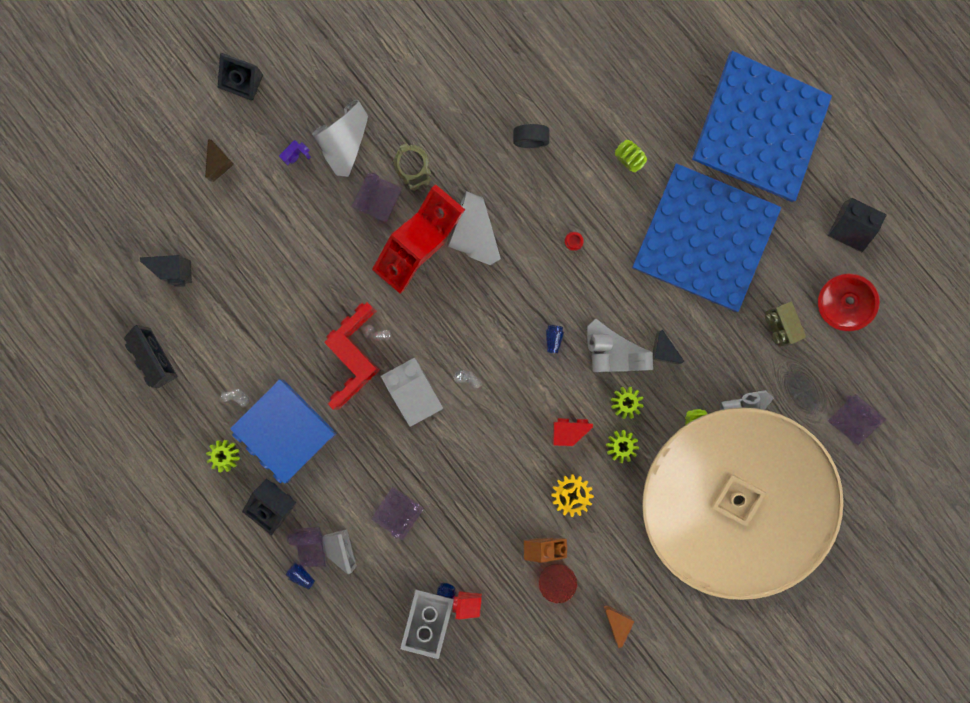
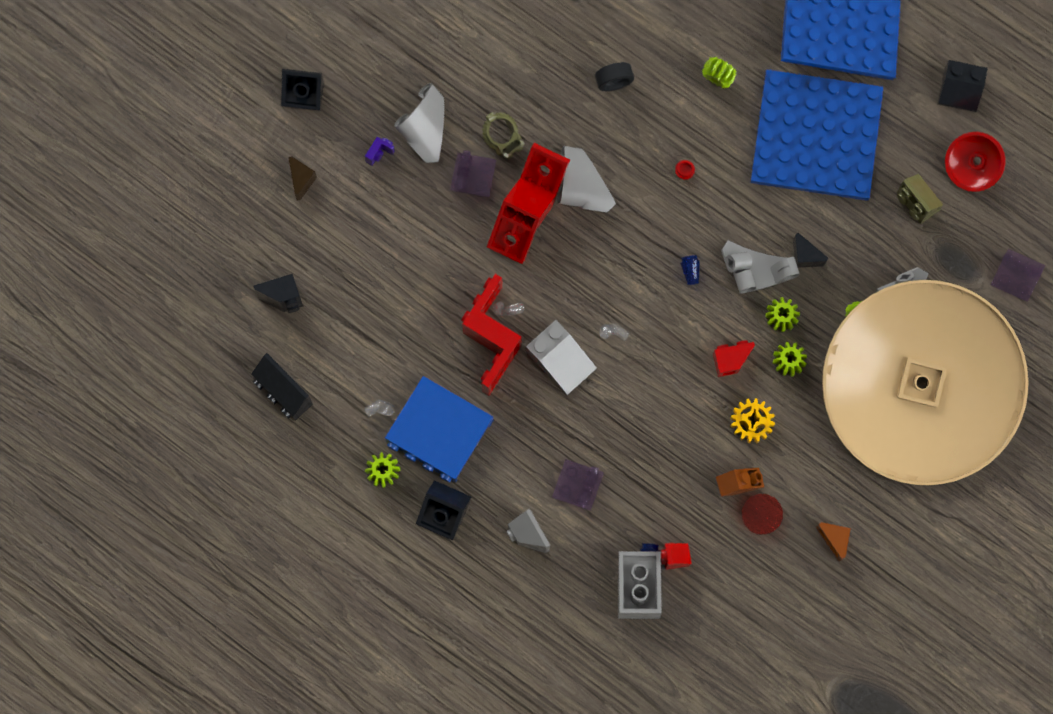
camera: 20 degrees left, 10 degrees down
(300, 576) = (494, 573): clear blue cone -> none
(309, 546) = (496, 538): clear purple hinge -> none

